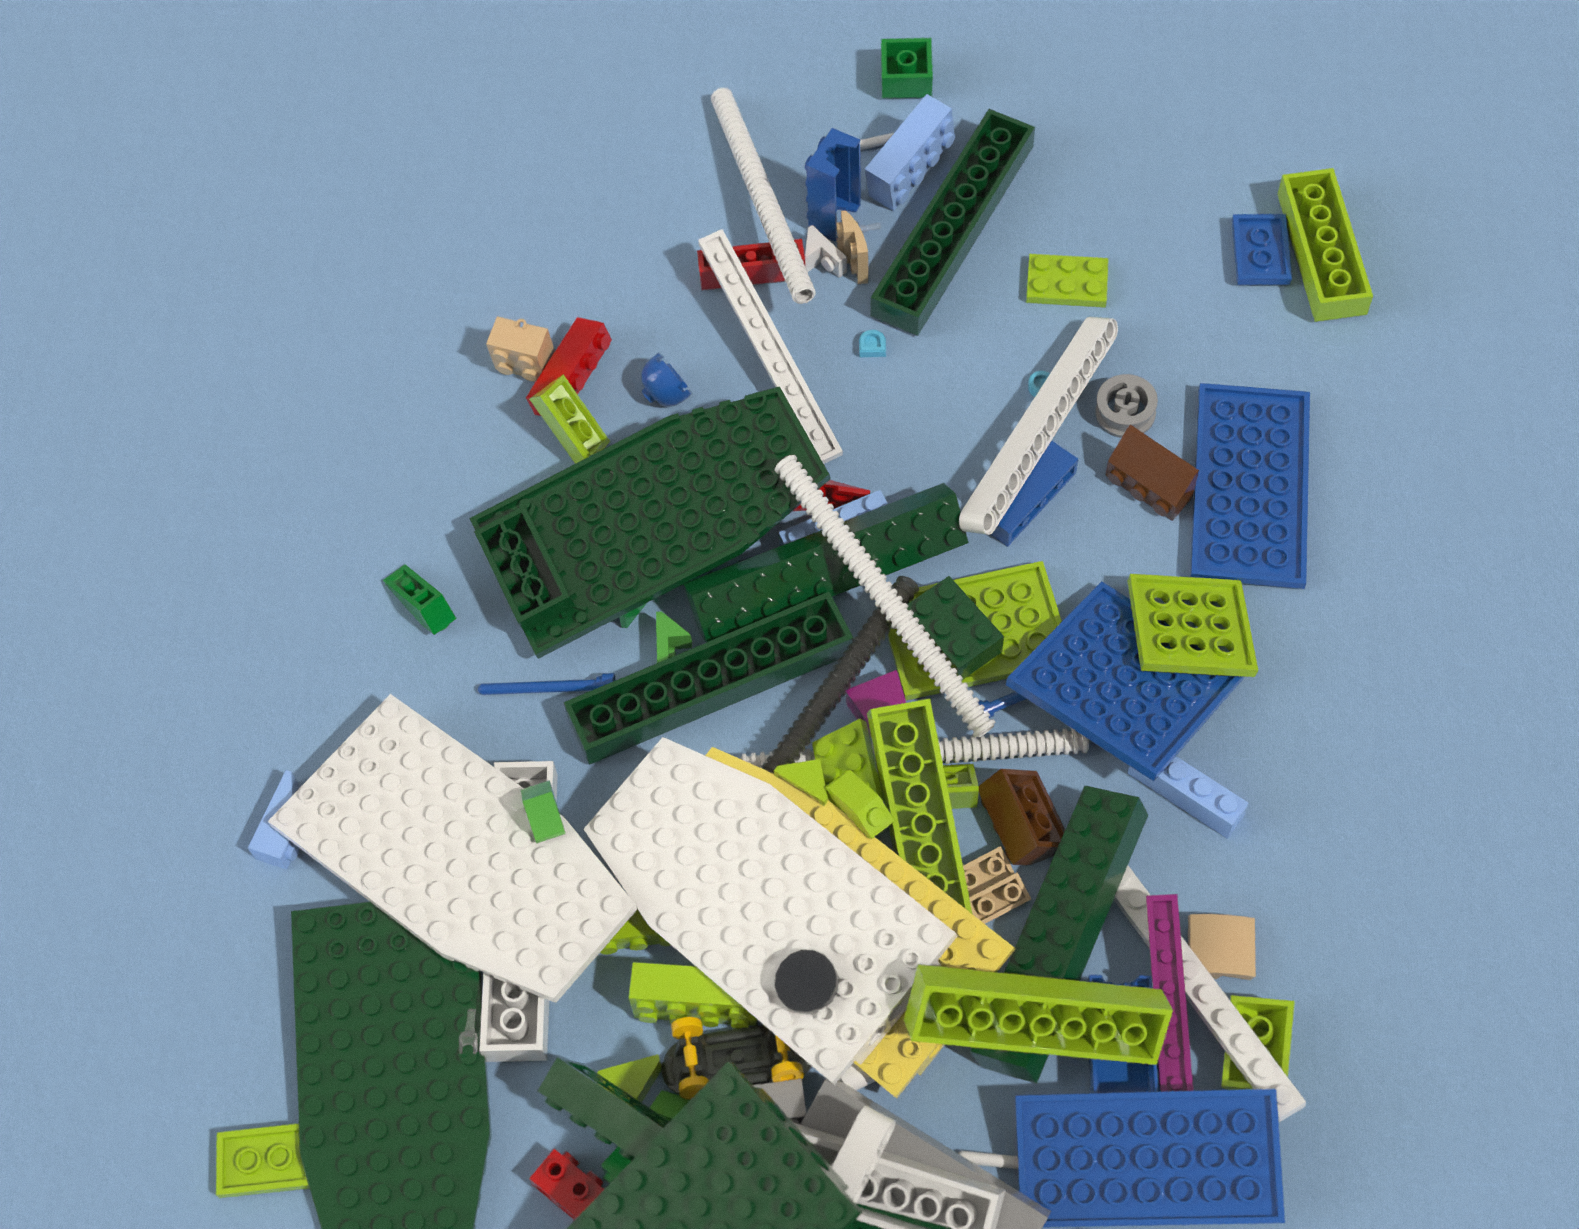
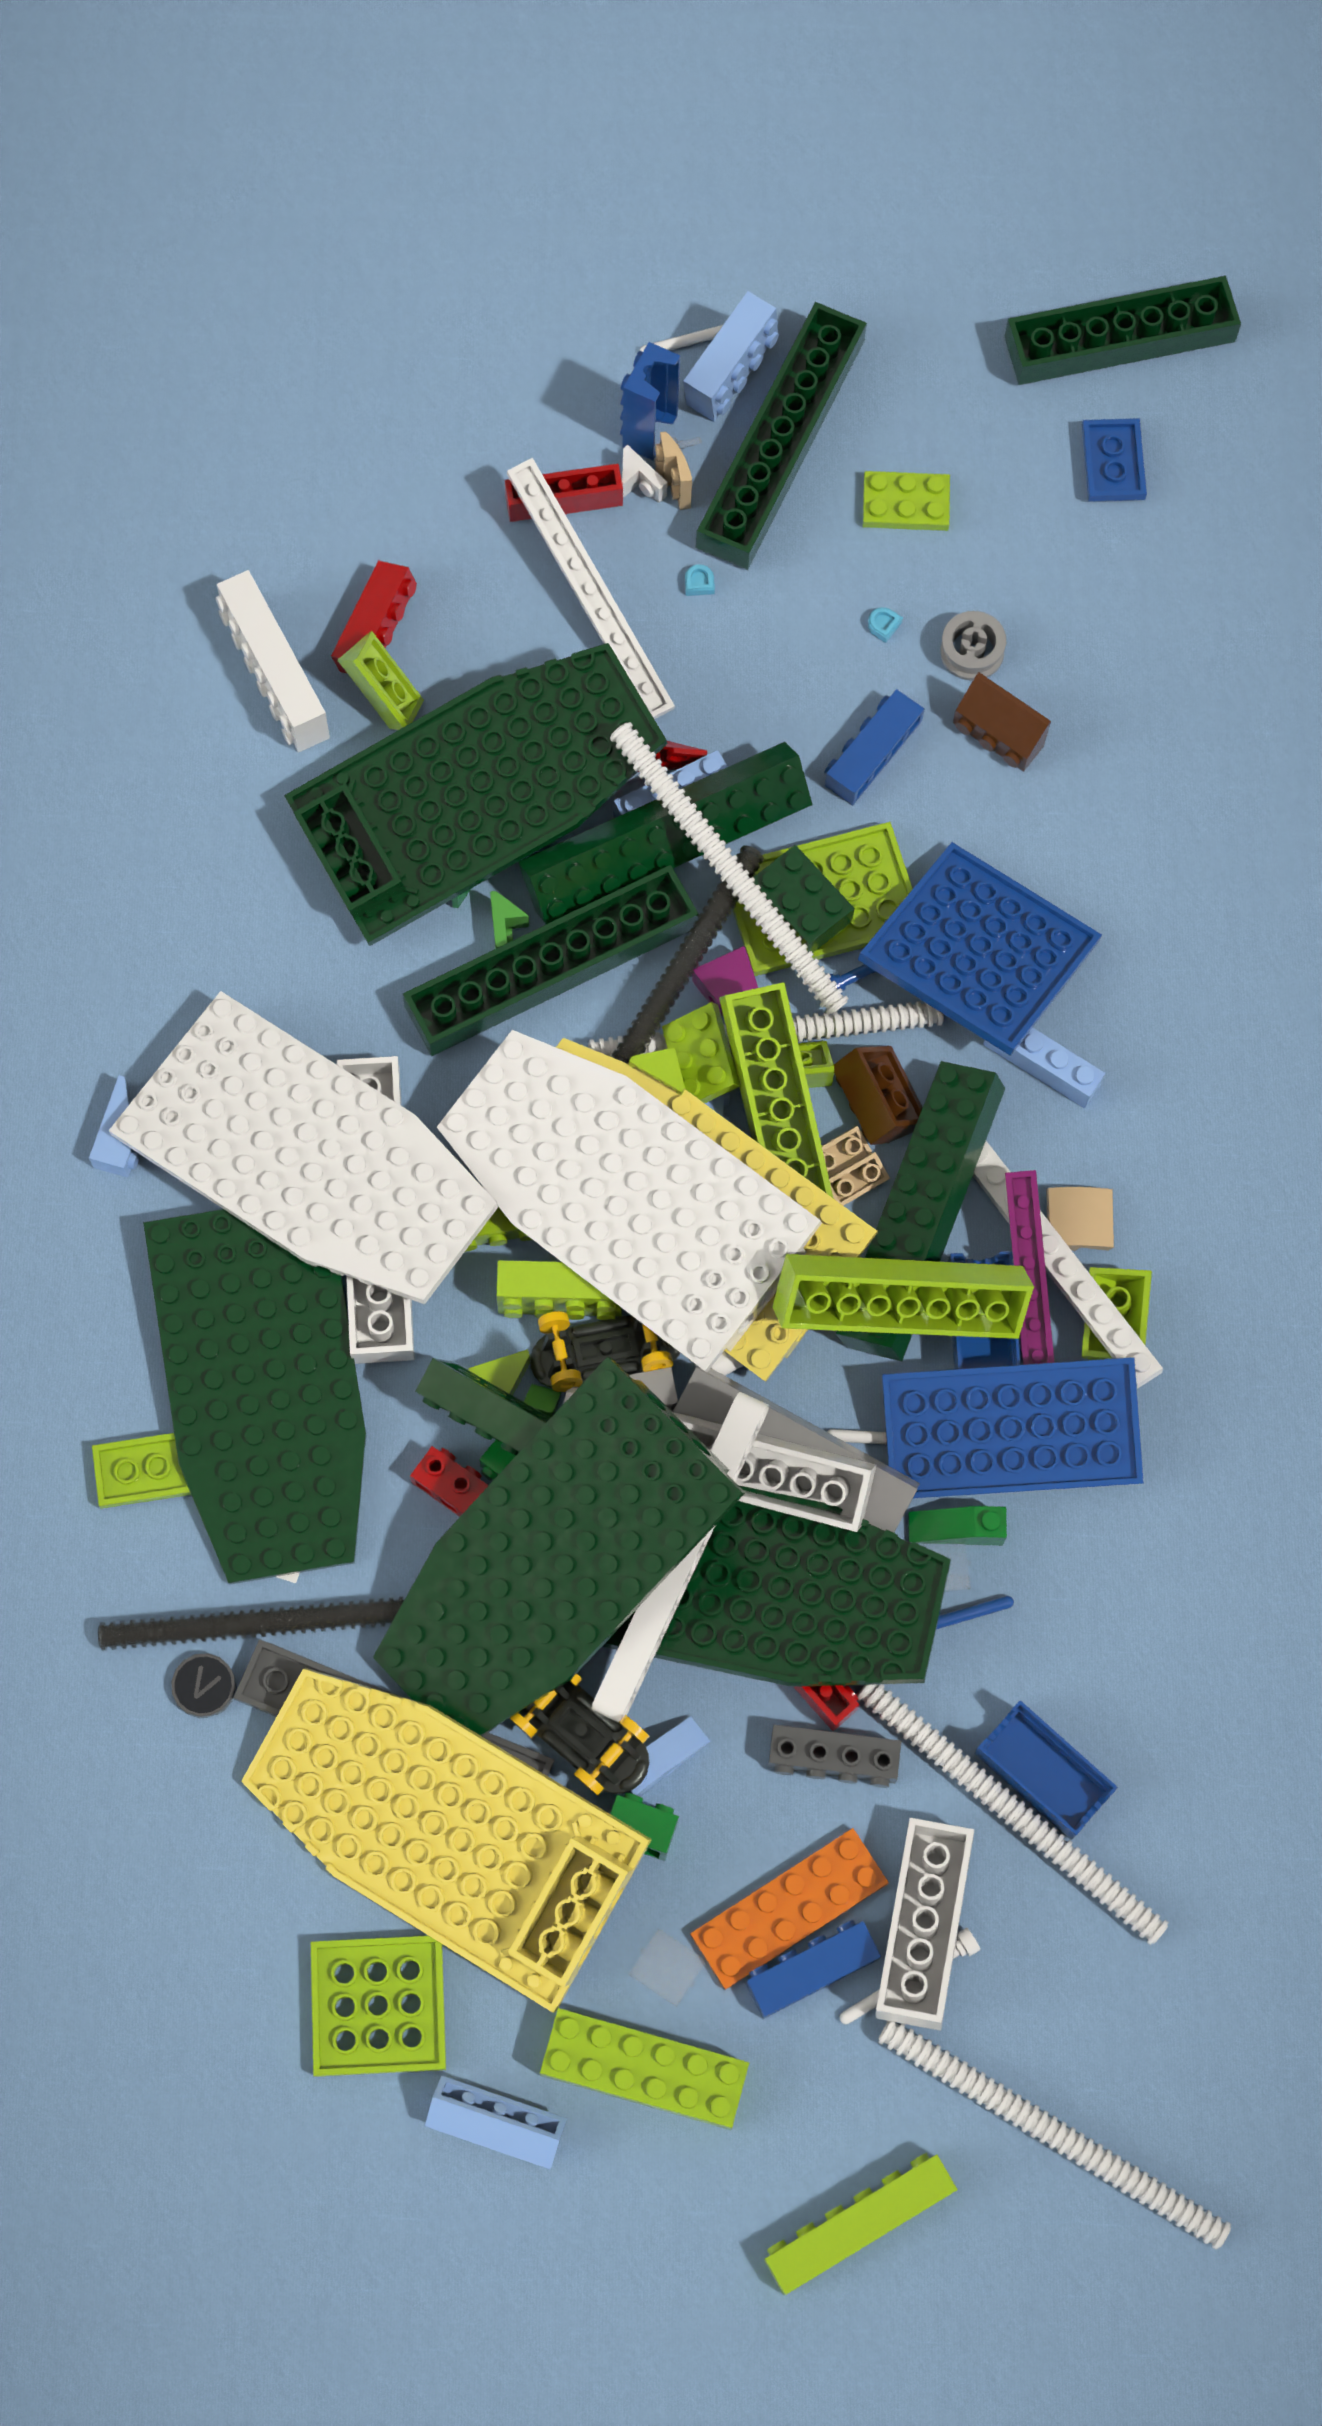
camera: 10 degrees left, 10 degrees up
(420, 599) = (237, 884): green slope -> none
(469, 1037) = (338, 1340): clear hand -> none
(471, 402) = (272, 661): none -> white brick
(519, 349) = (320, 601): tan brick -> none
(542, 811) = (395, 1111): bright green slope -> none
(546, 686) = (435, 970): blue piece -> none
(663, 383) = (477, 633): blue cylinder -> none
(763, 197) = (571, 412): white piece -> none
(806, 981) = (675, 1274): black tile -> none
(860, 803) = (717, 1092): lime slope -> none
(906, 67) = (721, 250): green brick -> none
(1038, 426) = (882, 671): white beam -> none
(1184, 659) = (1033, 899): lime piece -> none
(1251, 485) = (1105, 730): blue plate -> none
(1270, 139) = (1122, 330): none -> dark green brick
(1324, 245) = (1181, 454): lime brick -> none

